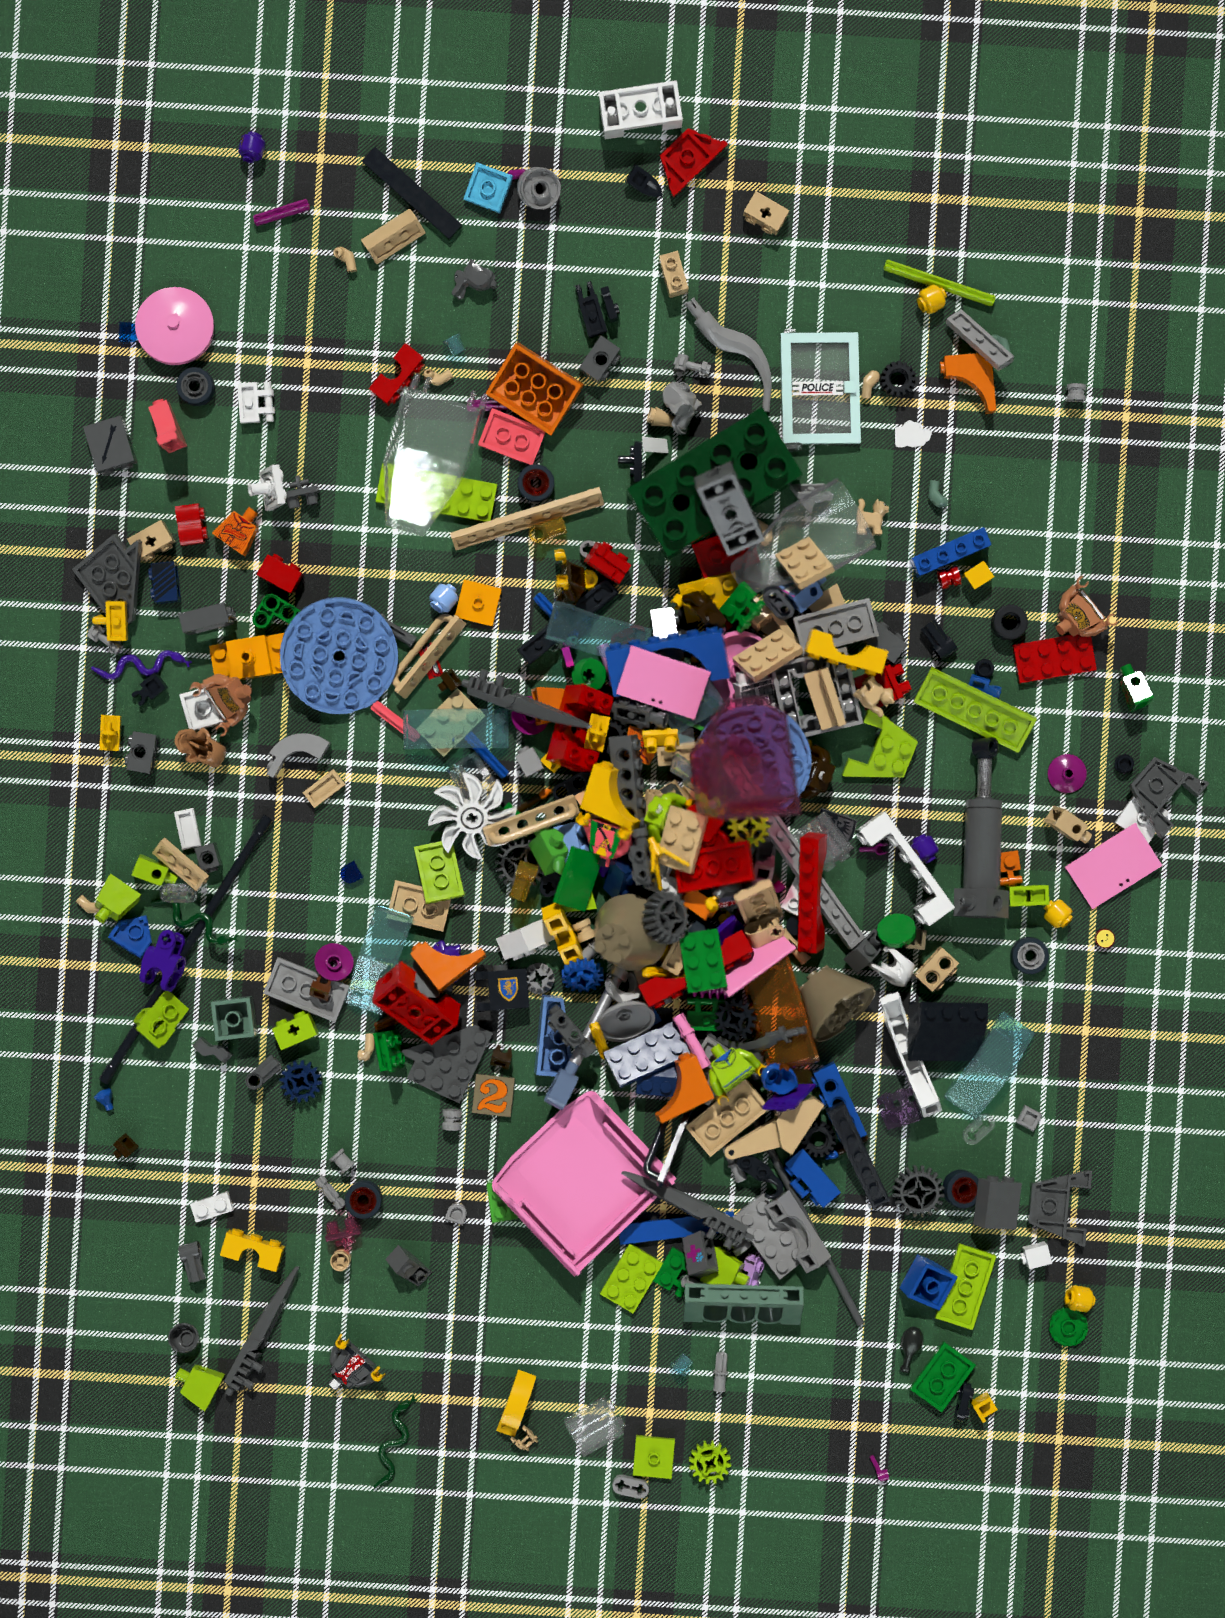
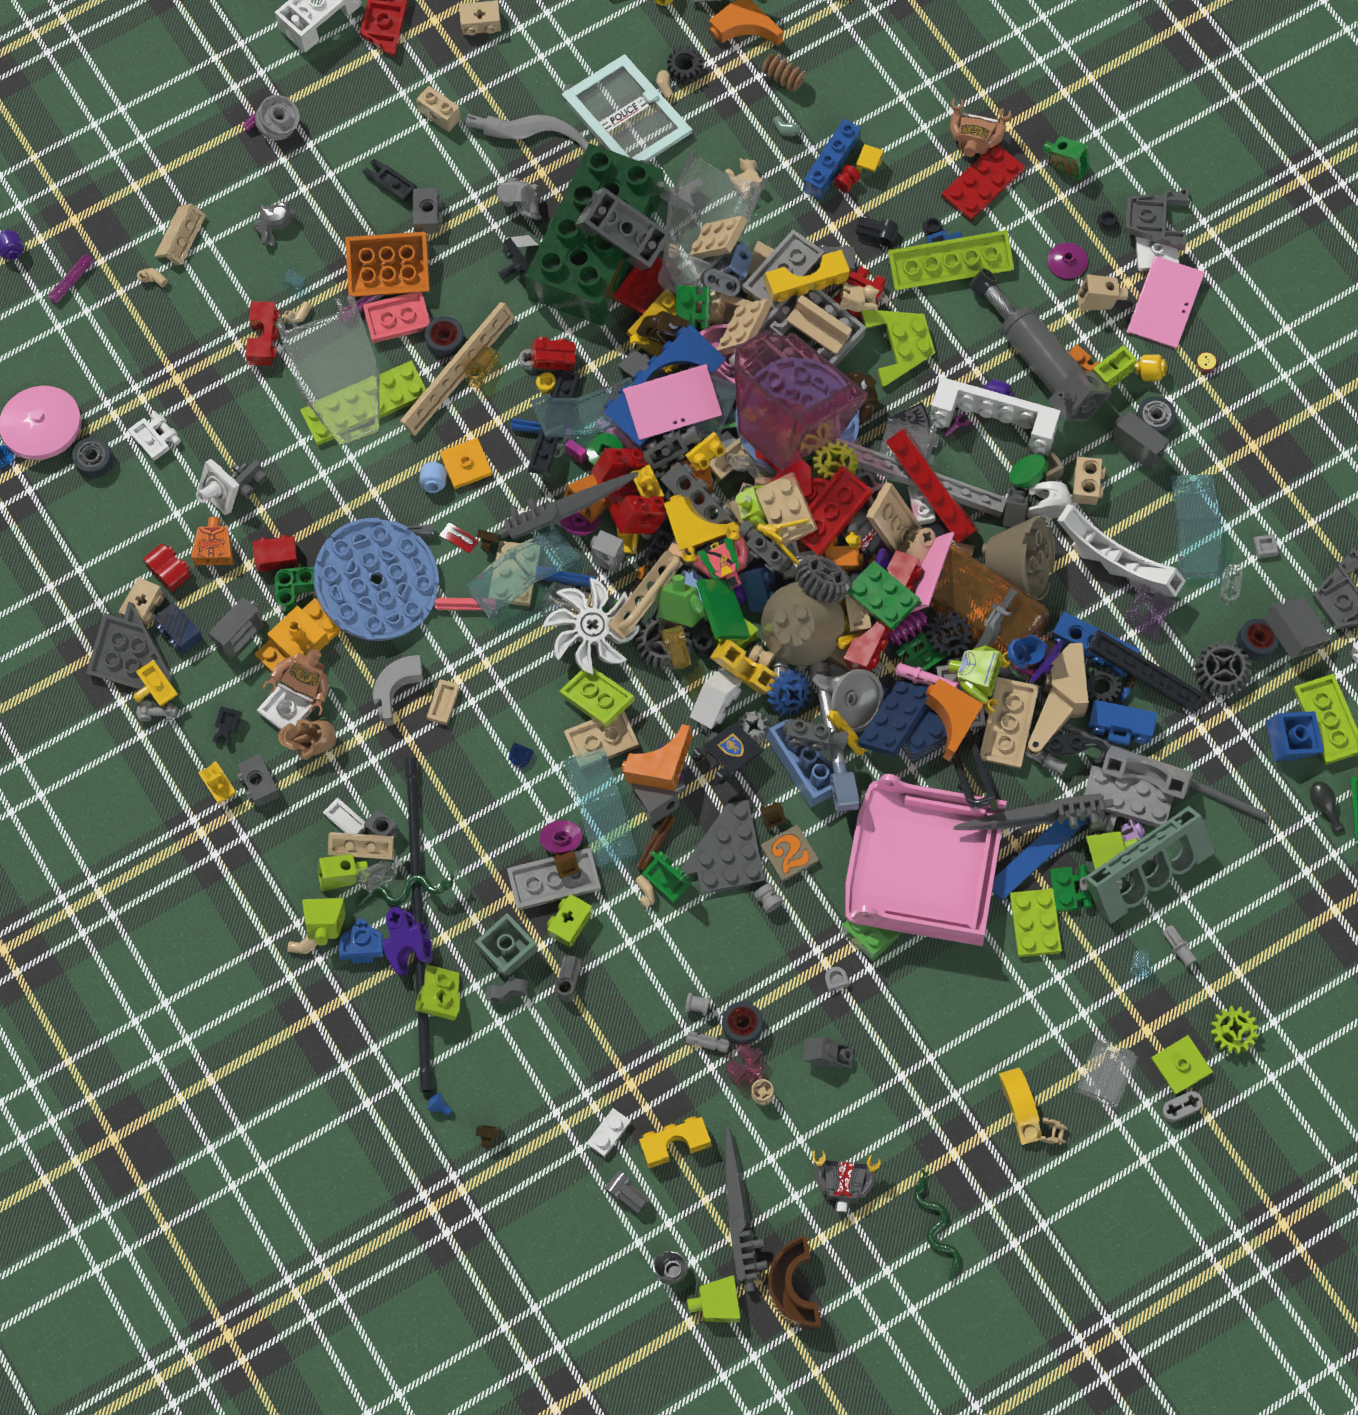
camera: 30 degrees left, 20 degrees down
(110, 445) = (50, 551): dark grey brick -> none
(140, 666) = (230, 684): dark purple animal -> none
(168, 430) = (91, 502): coral arch -> none
(246, 1422) = (785, 1300): none -> reddish brown brick
(292, 1076) = (615, 960): dark blue gear -> none
(397, 997) = (639, 809): red plate -> none
(412, 193) = (172, 193): black tile -> none
(430, 656) = (456, 530): tan piece -> none
(488, 187) = (234, 147): medium azure plate -> none
(570, 582) = (530, 387): dark brown torso -> none
(612, 309) = (405, 167): black plate -> none
(643, 182) = (360, 60): black plate -> none
(658, 417) = (511, 220): tan cone -> none
(681, 364) = (497, 170): light grey bar -> none
(699, 1255) = (1078, 850): dark grey brick -> none
(911, 435) = (729, 100): white sticker -> none
(945, 1030) = (1134, 515): black slope -> none
(971, 447) = (782, 72): none -> medium nougat piece
(999, 969) = (1140, 440): none -> dark grey brick
(1021, 618) = (926, 189): black tyre -> none

